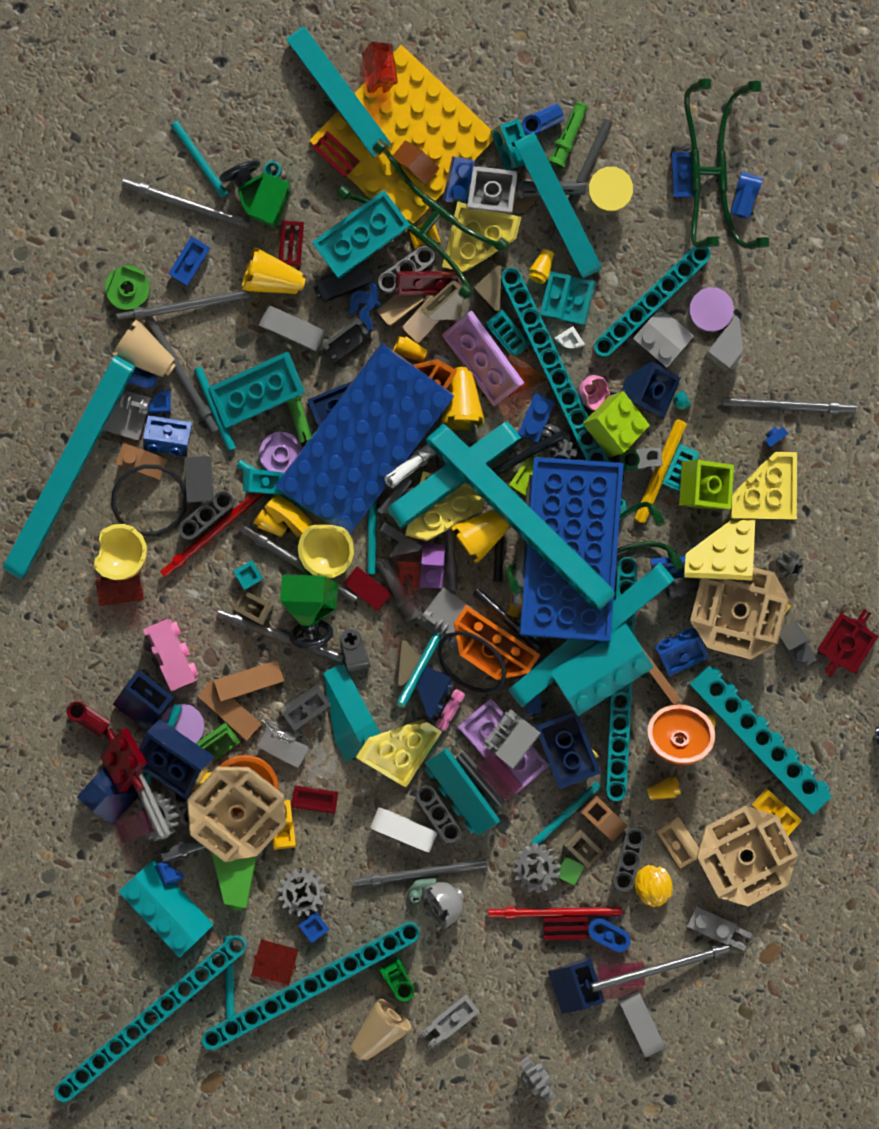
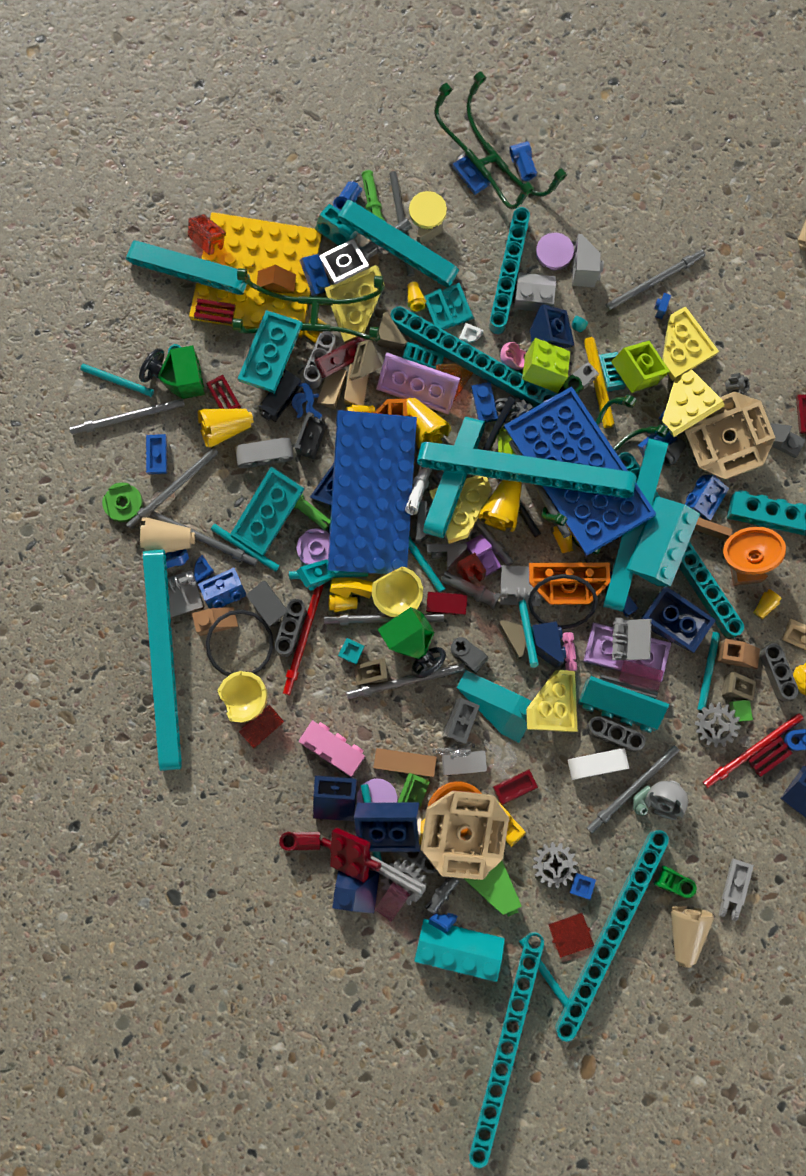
camera: 30 degrees left, 10 degrees down
(248, 681) = (404, 730): medium nougat tile -> none
(506, 618) = (566, 556): black bar -> none

